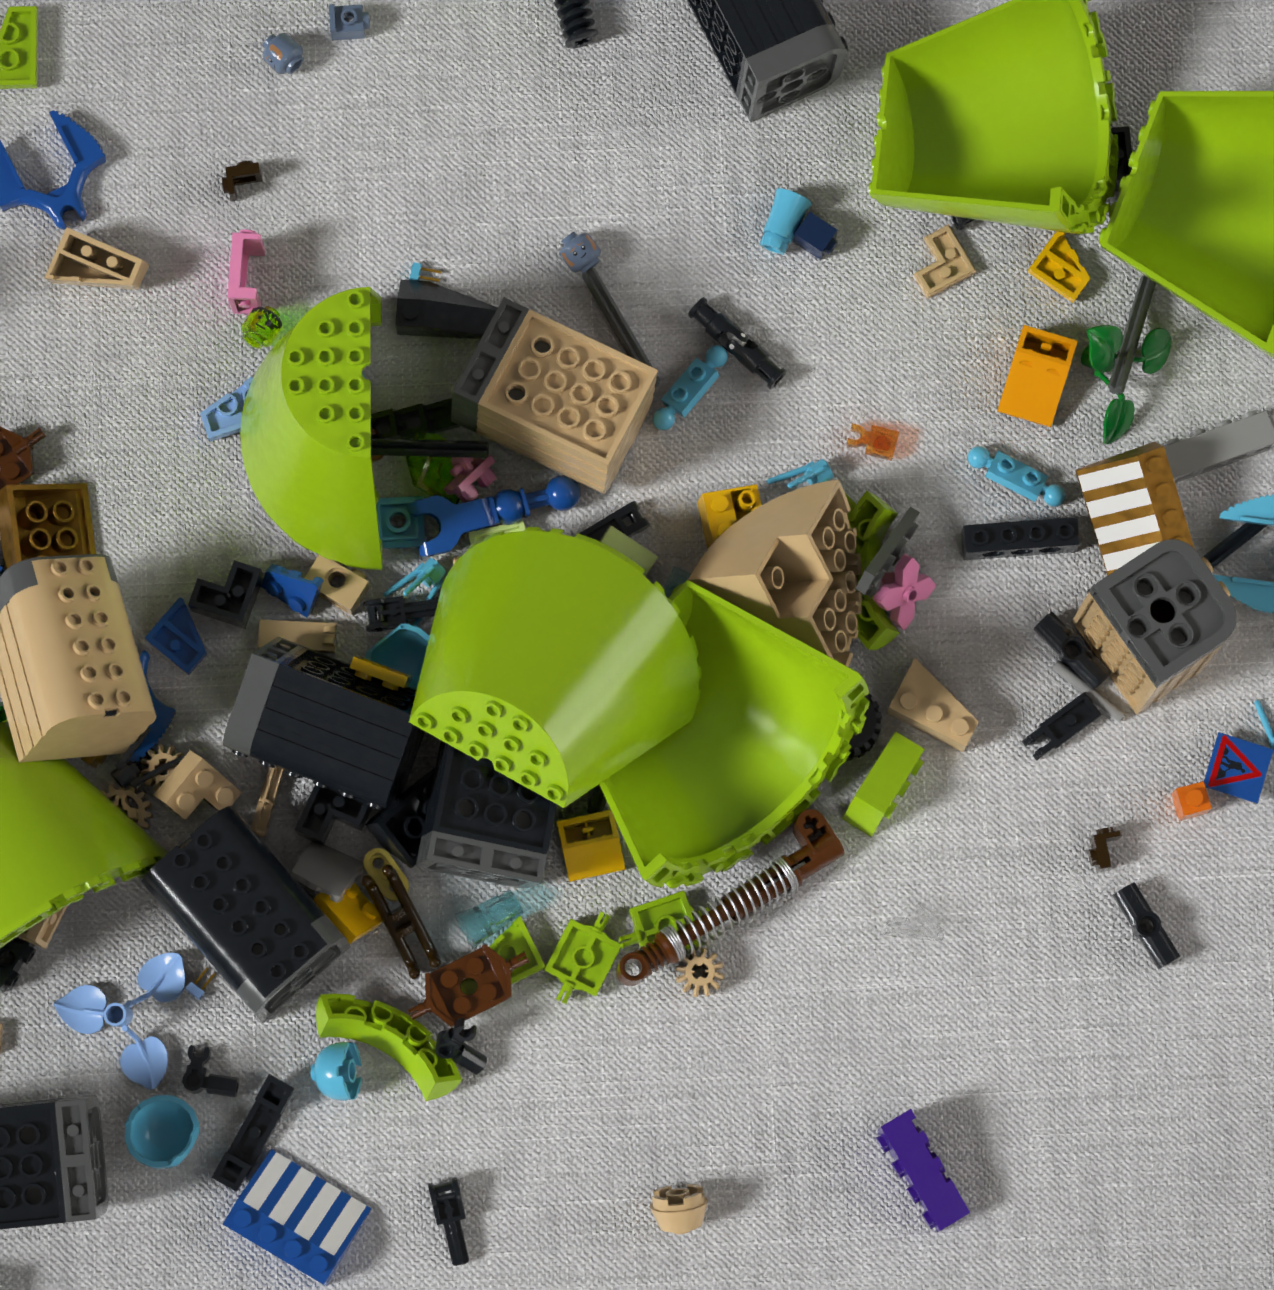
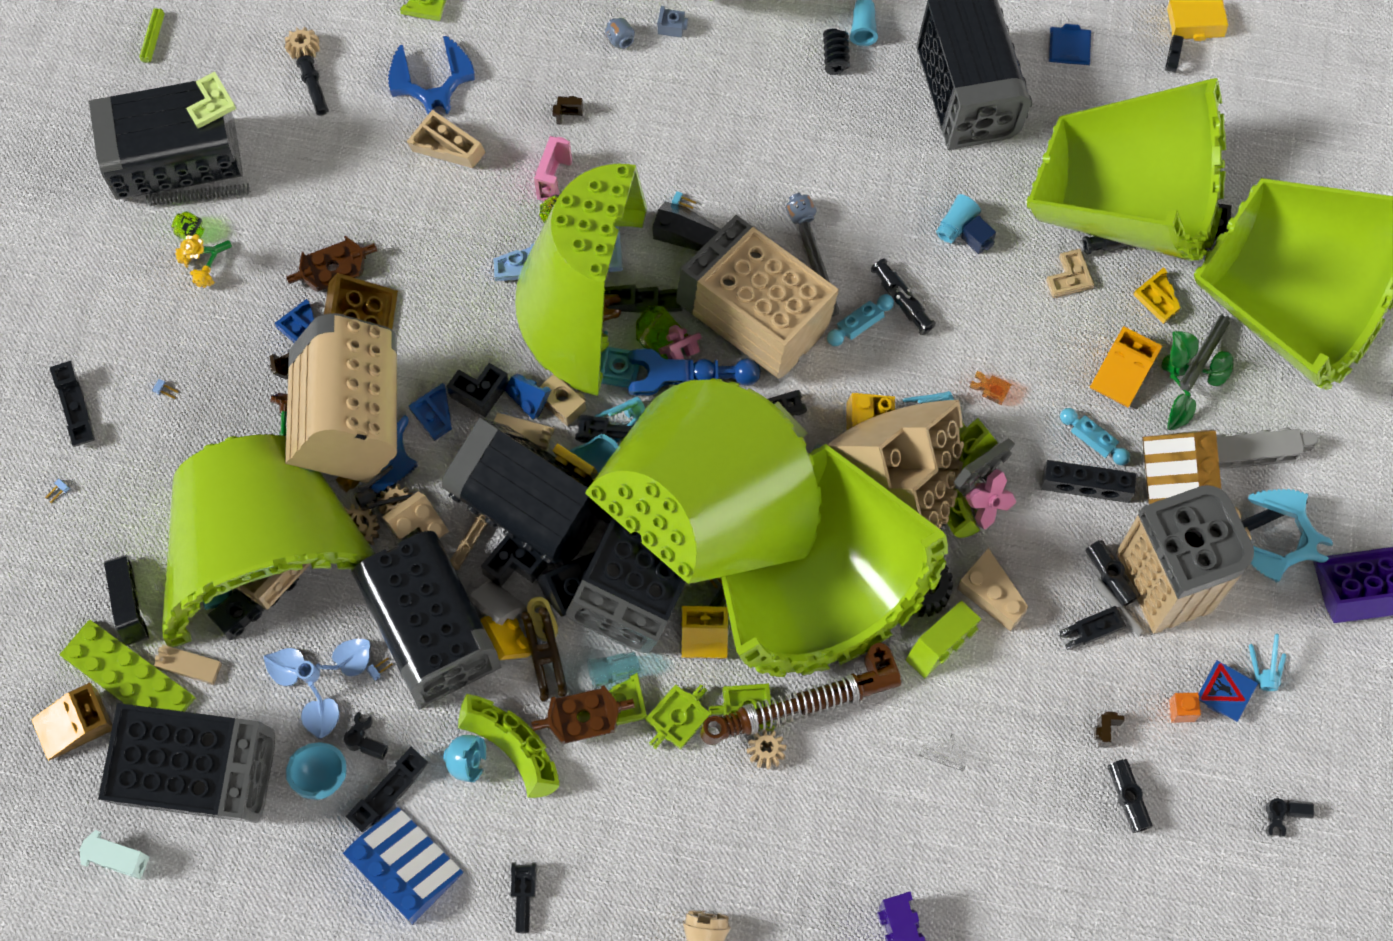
camera: 15 degrees right, 10 degrees down
(429, 448) = (651, 313): black axle -> none
(451, 1045) = (558, 758): black bar -> none

